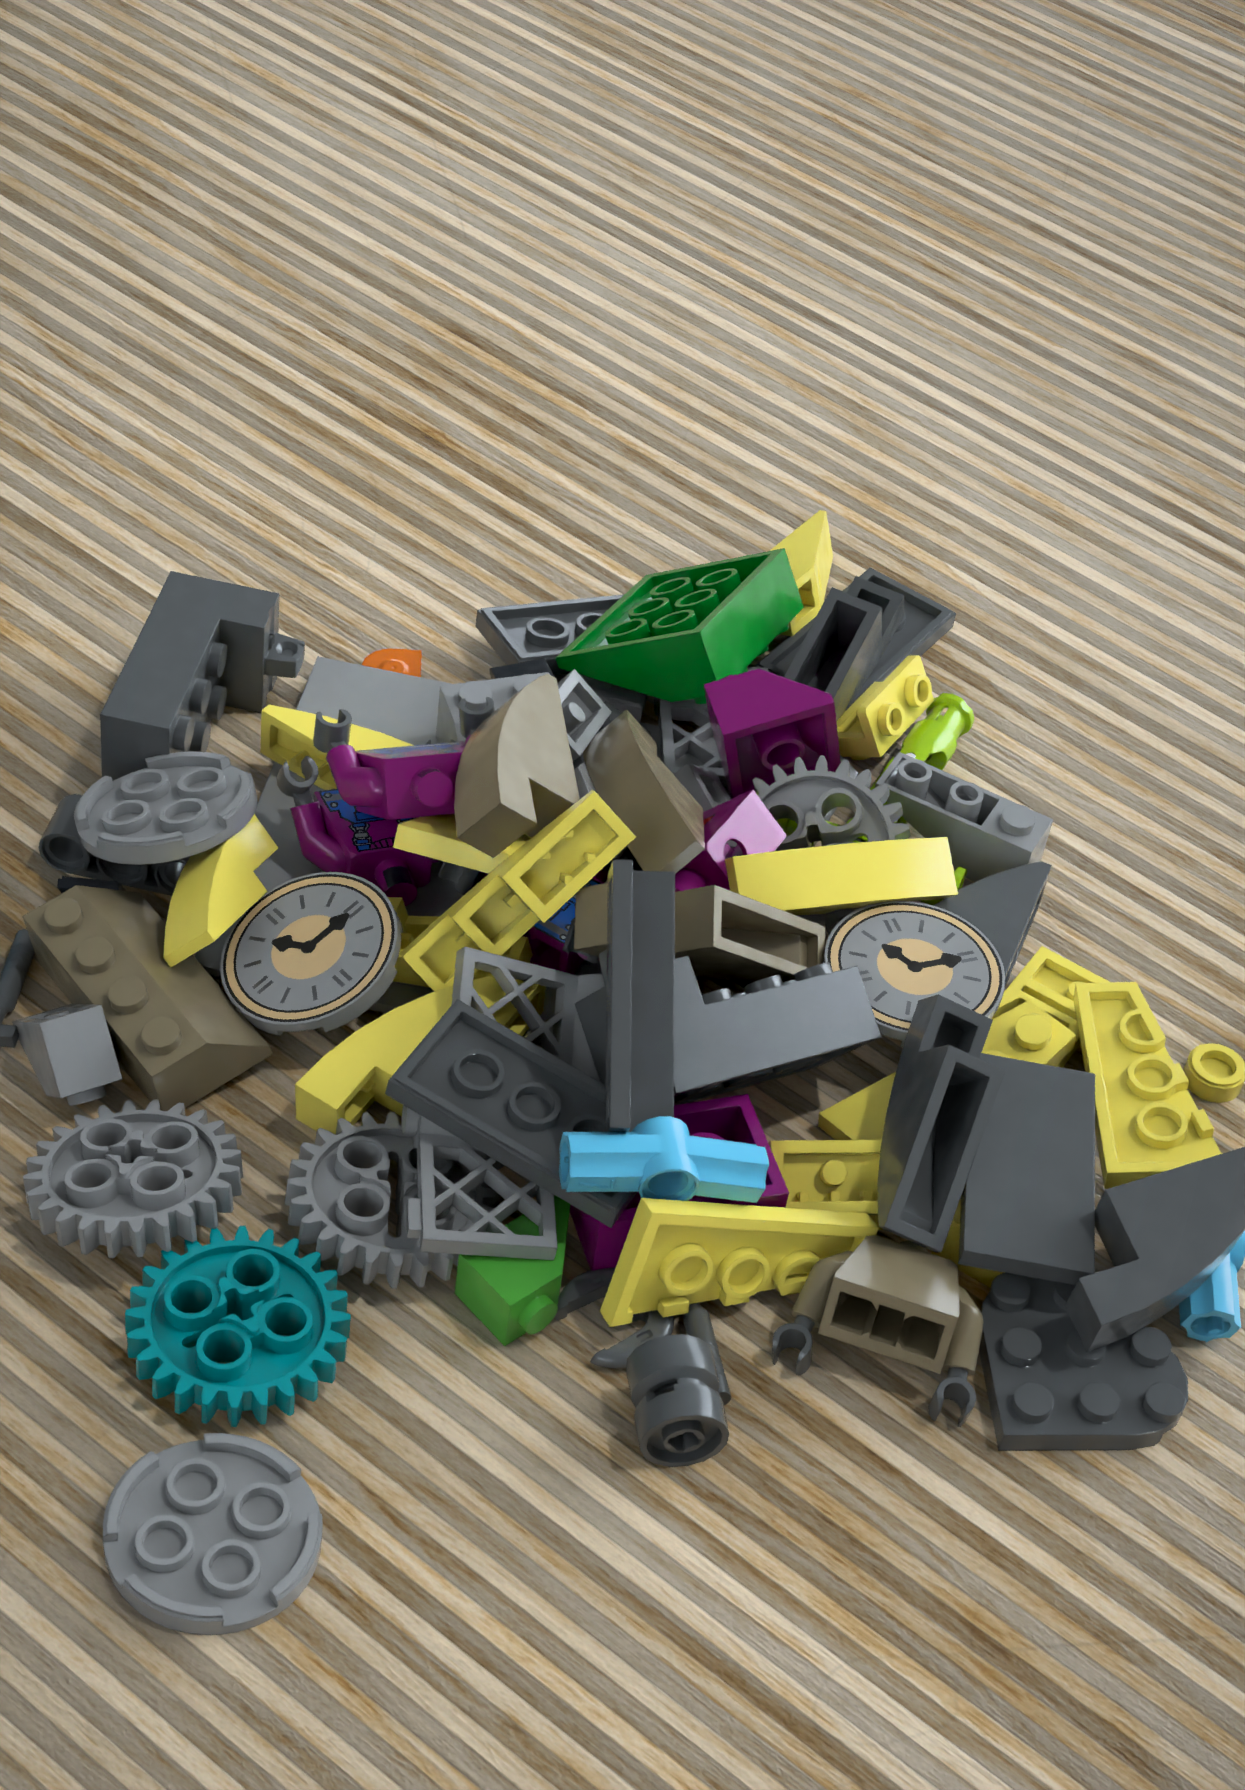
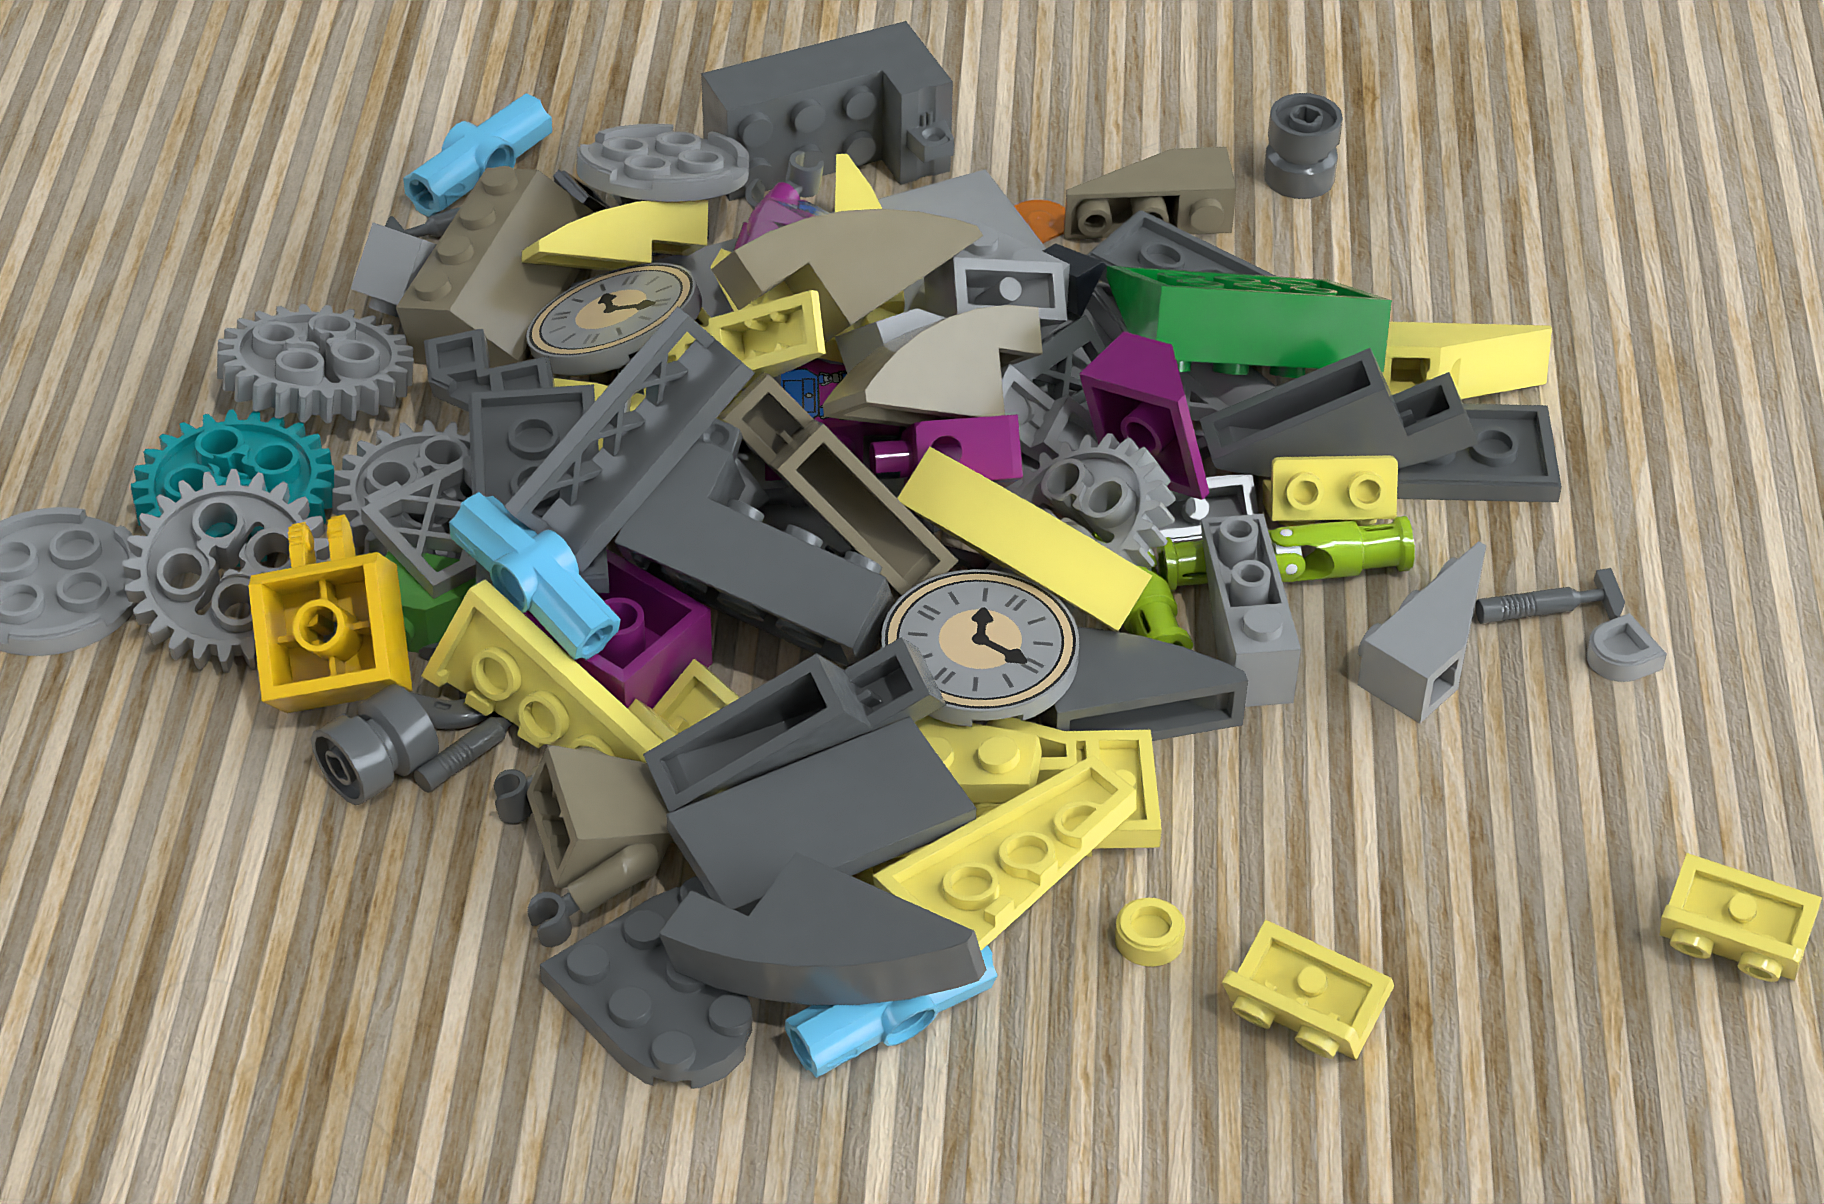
camera: 60 degrees right, 0 degrees up
(296, 1086) = (462, 366): none -> dark grey tile
(375, 1381) = (179, 545): none -> light grey gear
(468, 575) = (1180, 186): none -> dark tan slope
(491, 492) = (1302, 145): none -> dark grey wheel
(544, 1342) = (299, 607): none -> yellow hinge
(1057, 686) = (1552, 601): none -> dark grey piece
(1062, 762) = (1421, 649): none -> light grey slope
(1126, 689) = (1624, 650): none -> light grey tile

